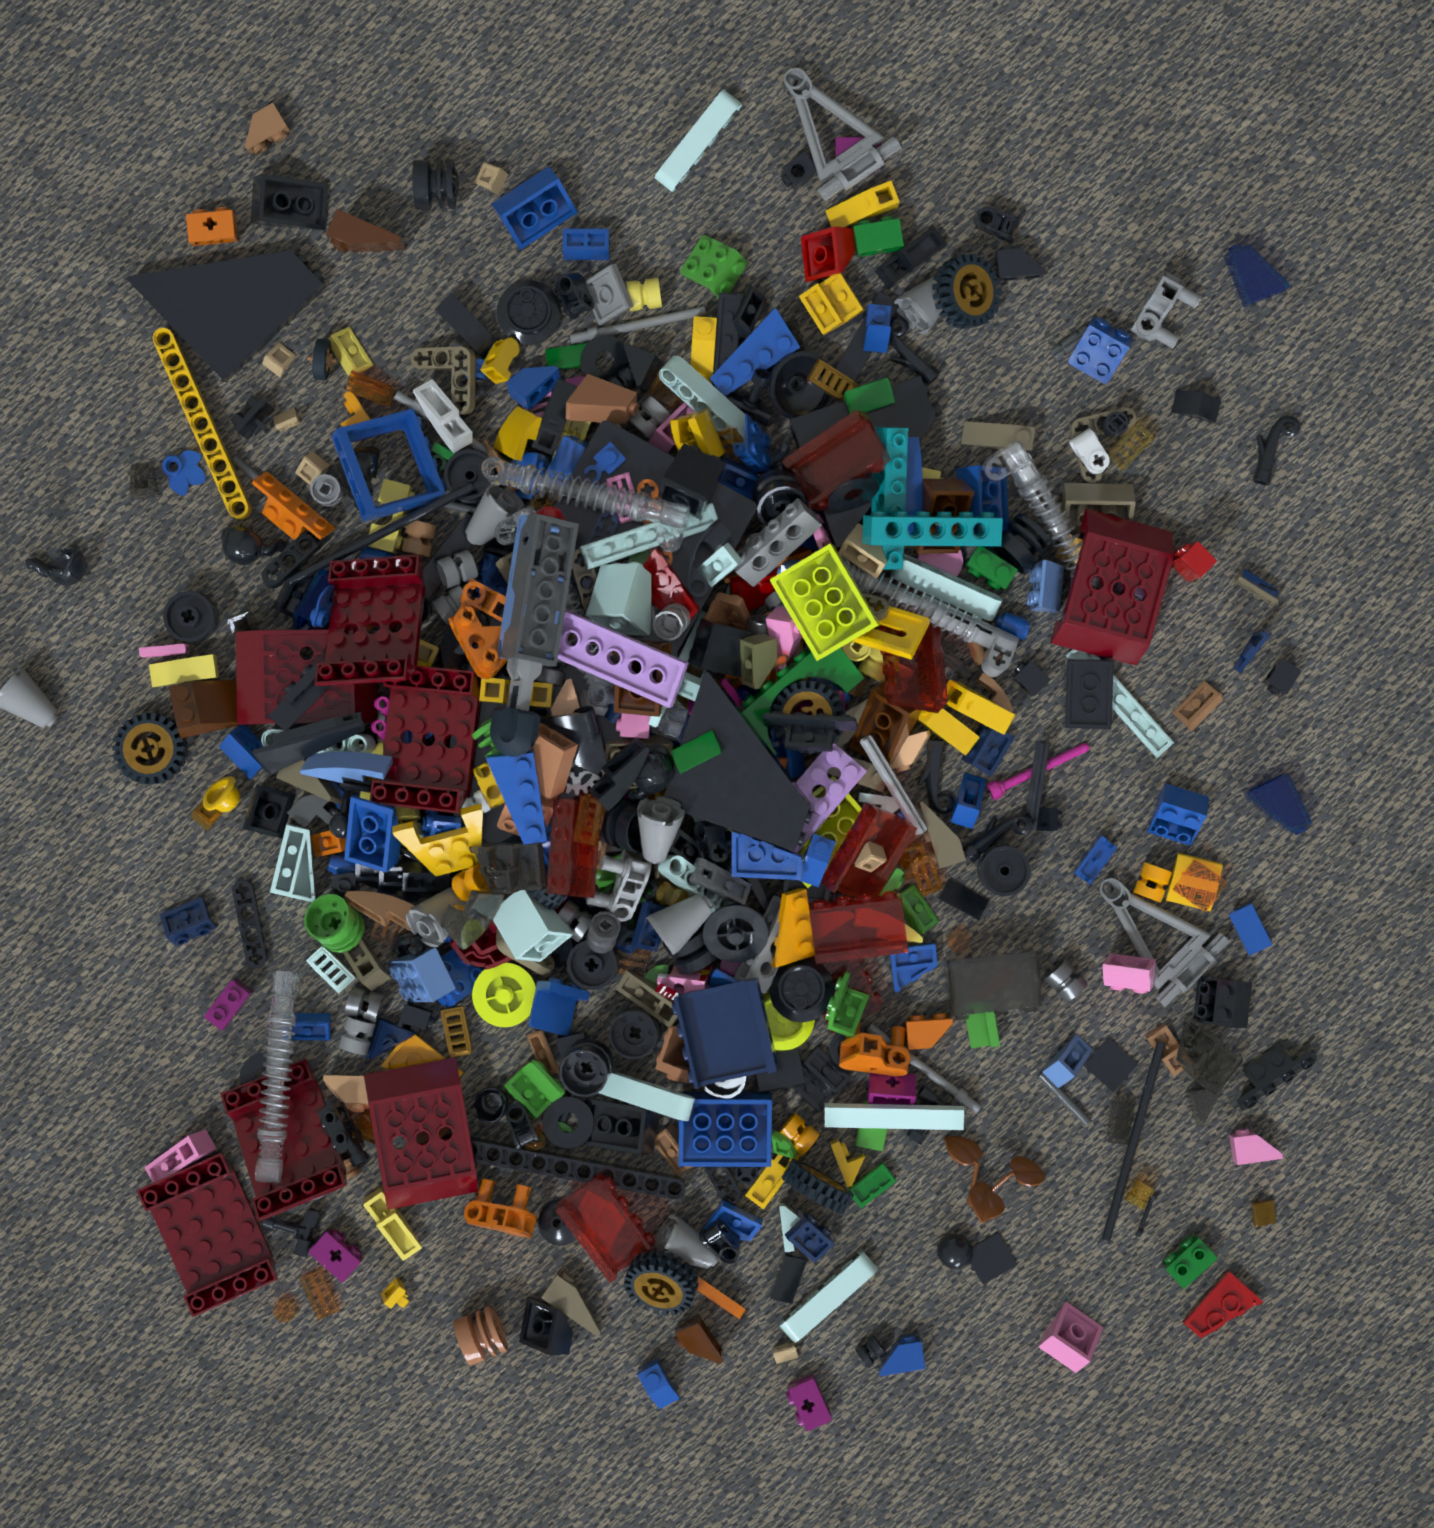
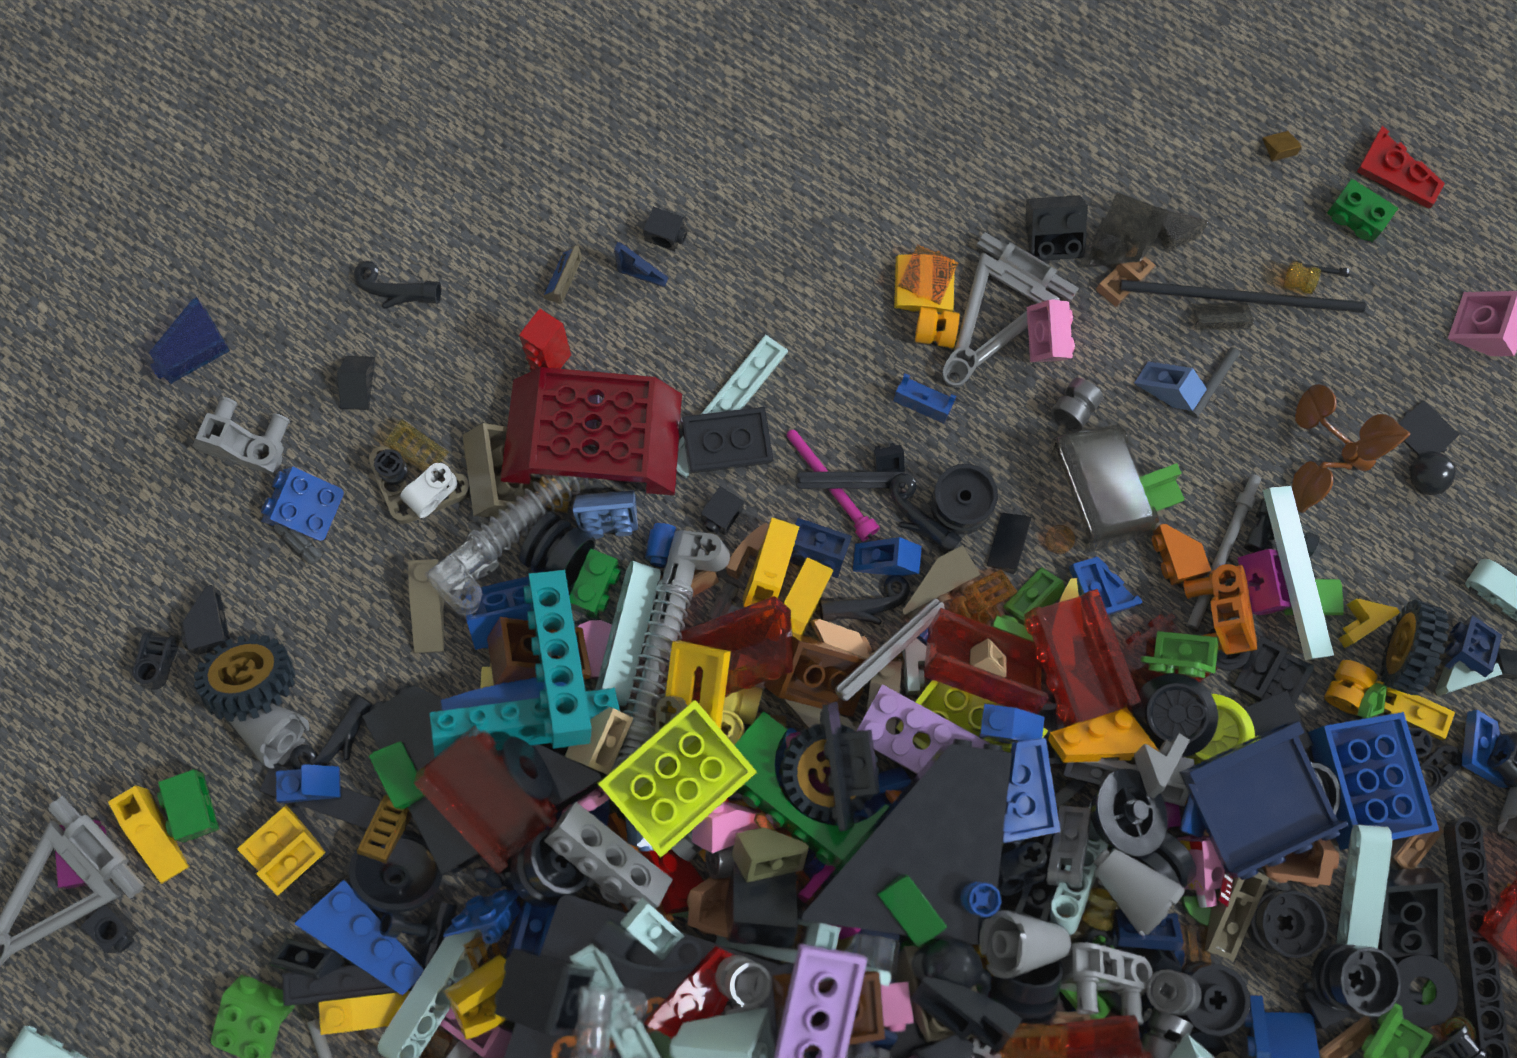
camera: 105 degrees left, 15 degrees down
(691, 805) = (986, 900): none -> blue wheel
(764, 960) = (1159, 765): none -> light grey slope
(827, 252) = (214, 870): red slope -> none
(872, 1185) = (1383, 584): green plate -> none
(910, 257) = (211, 759): black slope -> none
(1110, 1064) = (1159, 338): black piece -> none
(1178, 814) = (849, 313): blue slope -> none
(1198, 705) = (715, 317): medium nougat slope -> none
(1250, 928) = (963, 212): blue hinge -> none
(1251, 1148) = (1215, 167): bright pink slope -> none
(1271, 1071) = (1119, 164): black bracket -> none
(1281, 803) = (811, 204): clear blue slope -> none

